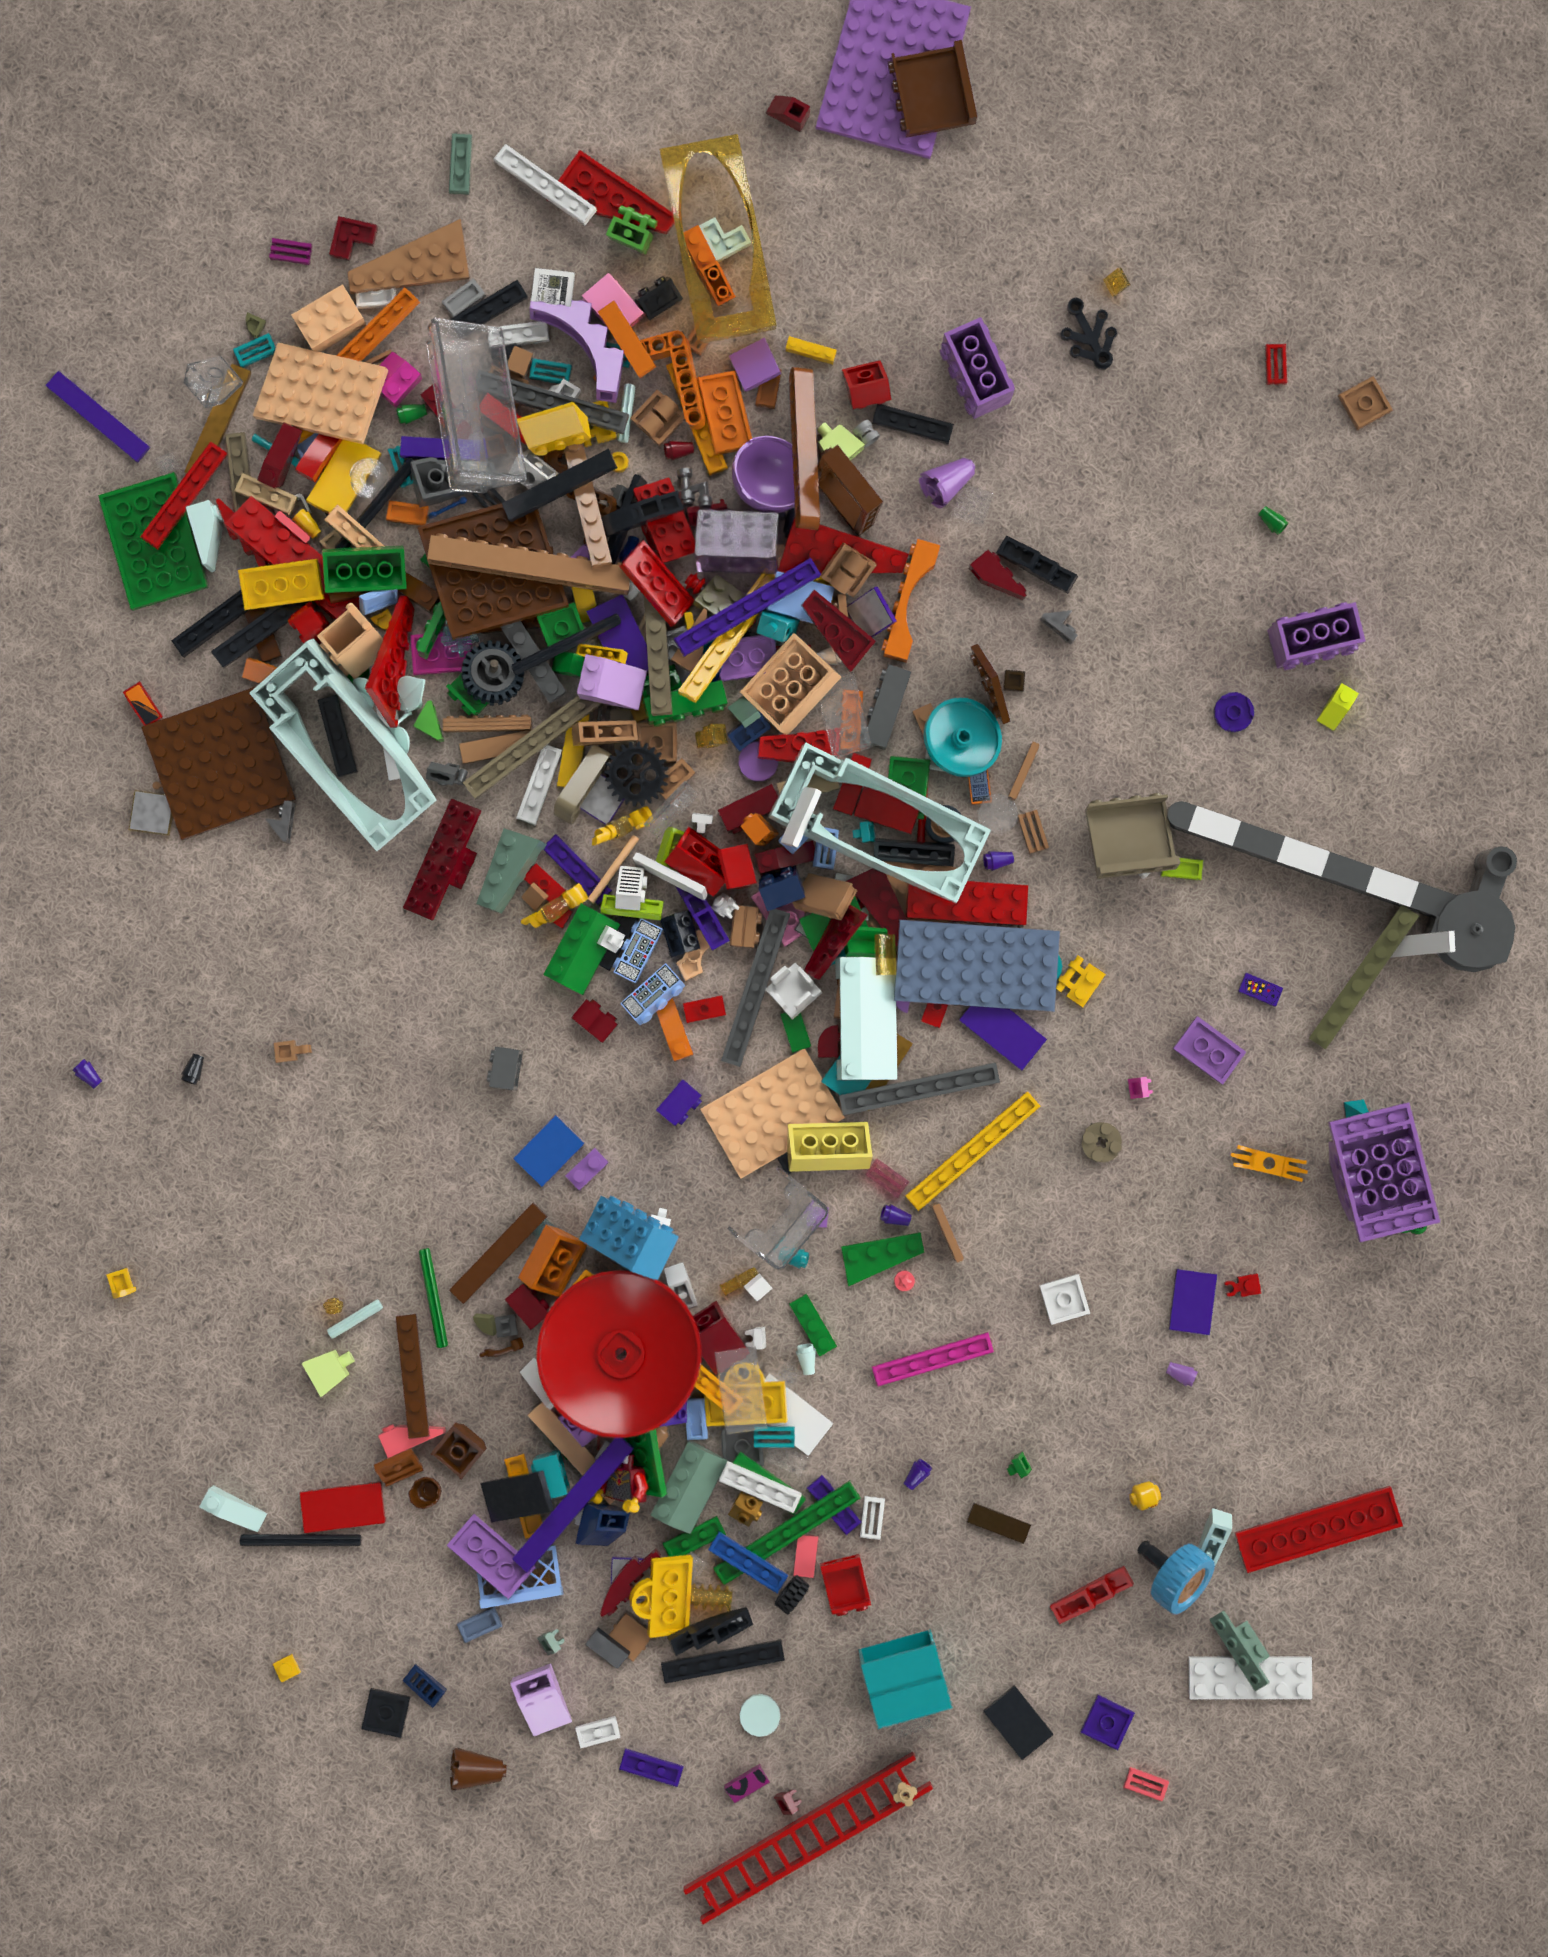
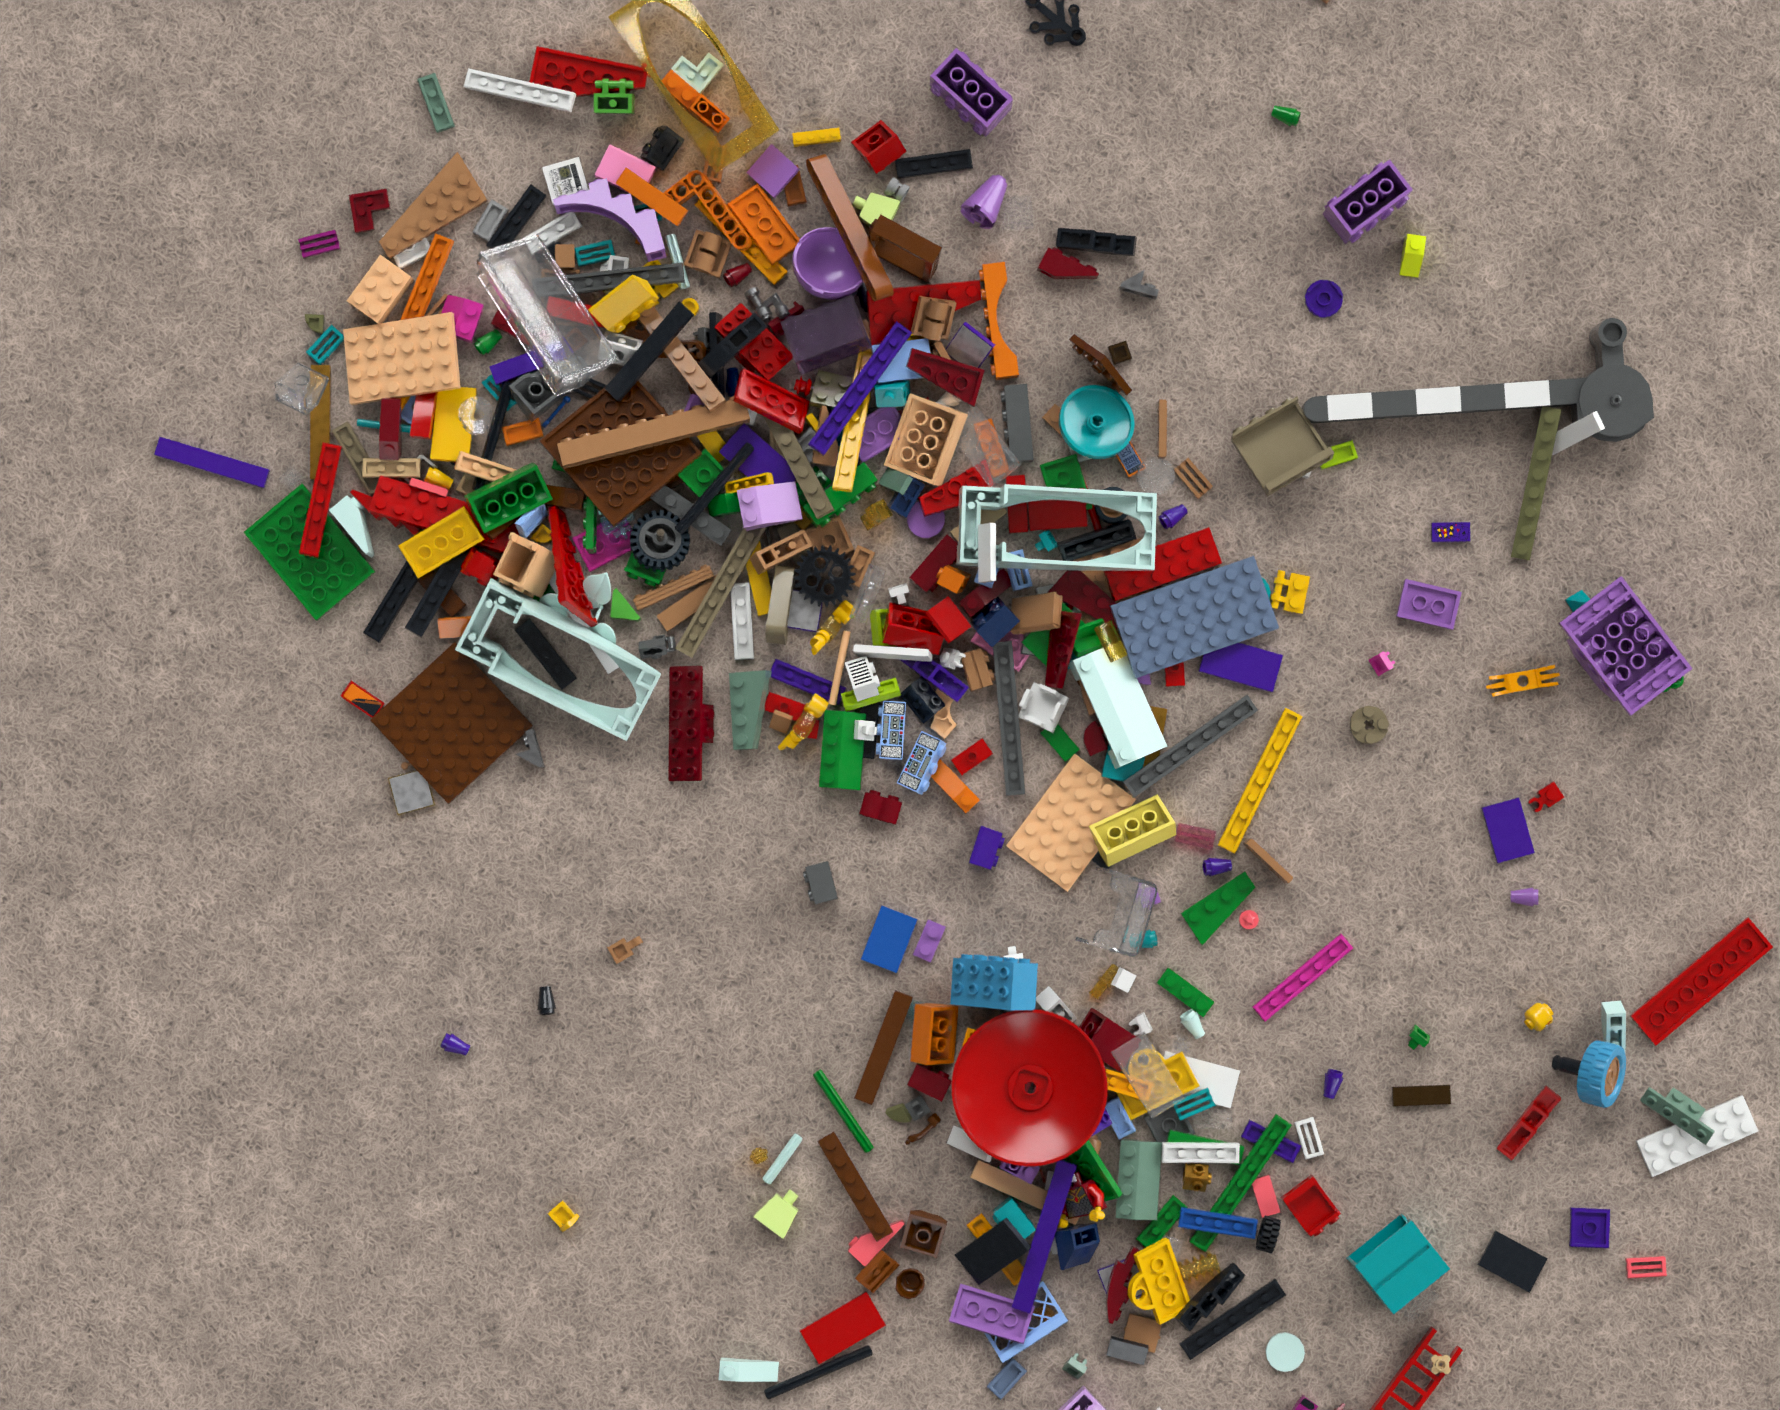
camera: 20 degrees left, 0 degrees up
(1064, 1299) = (1395, 875): white plate -> none

